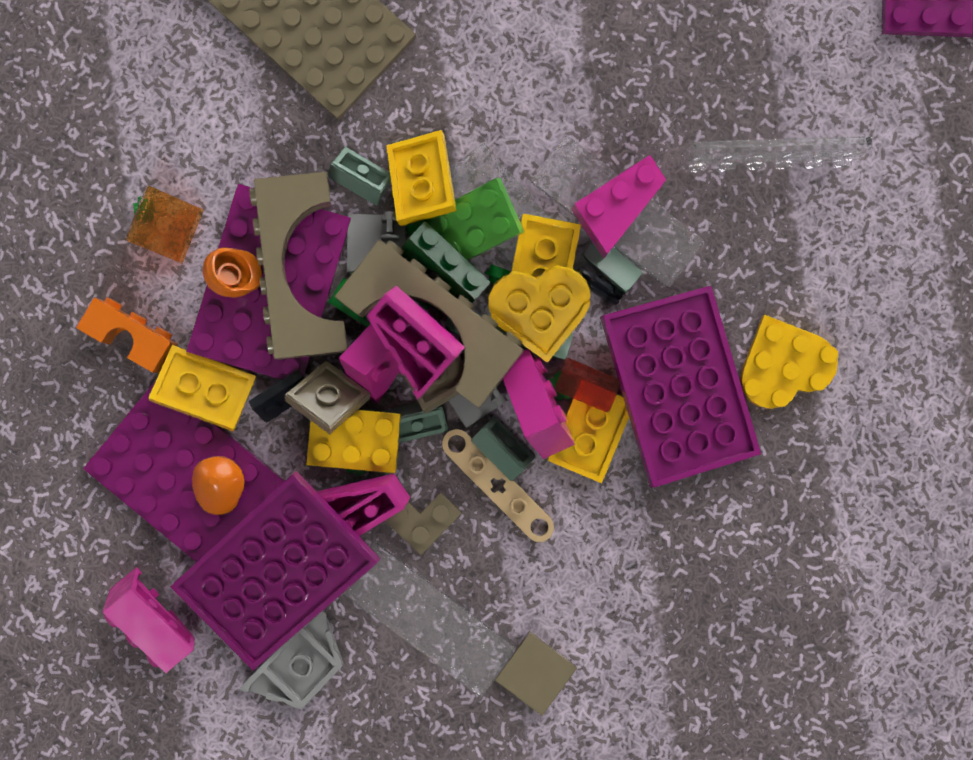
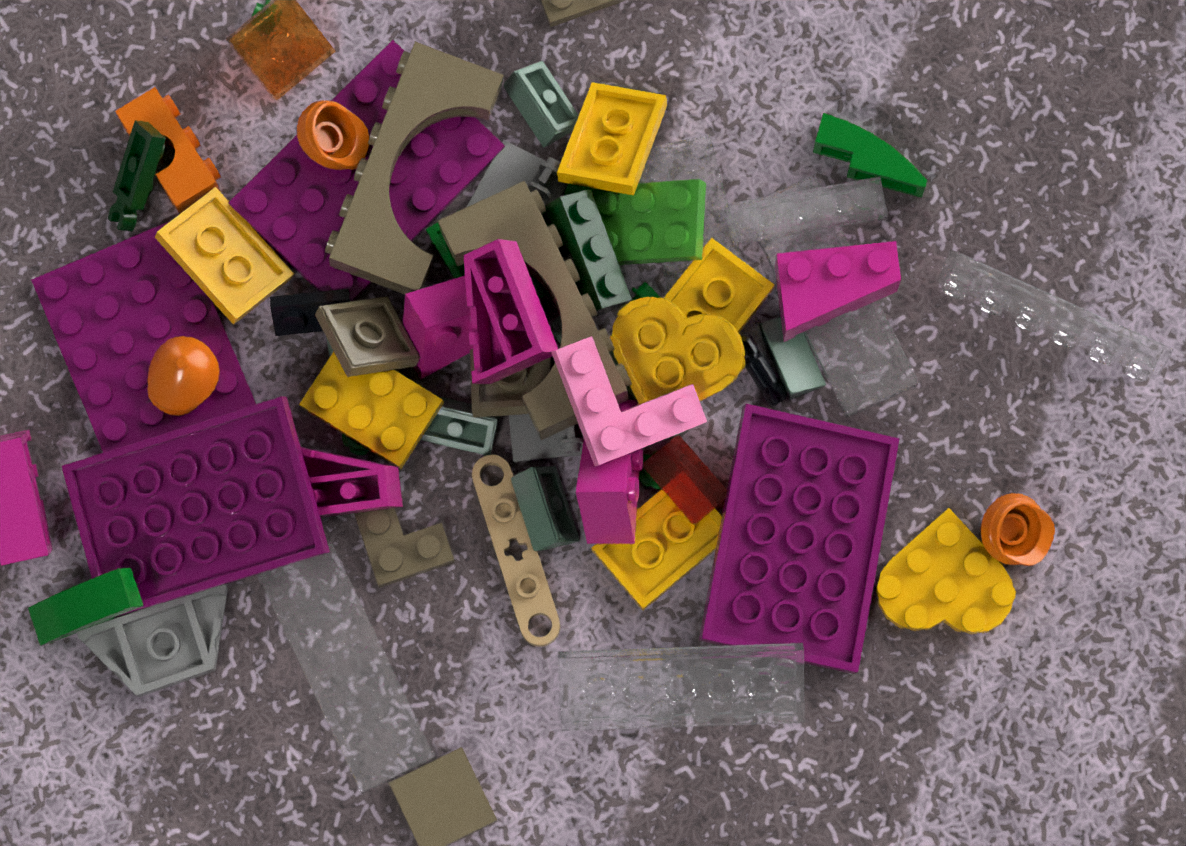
camera: 30 degrees right, 10 degrees down
(113, 363) = (136, 174): none -> dark green plate
(237, 670) = (85, 605): none -> green slope
(523, 383) = (603, 425): none -> bright pink plate
(574, 162) = (806, 211): none -> clear plate
(595, 103) = (867, 156): none -> green slope
(653, 522) = (681, 686): none -> clear plate
(817, 308) = (1017, 530): none -> orange hat

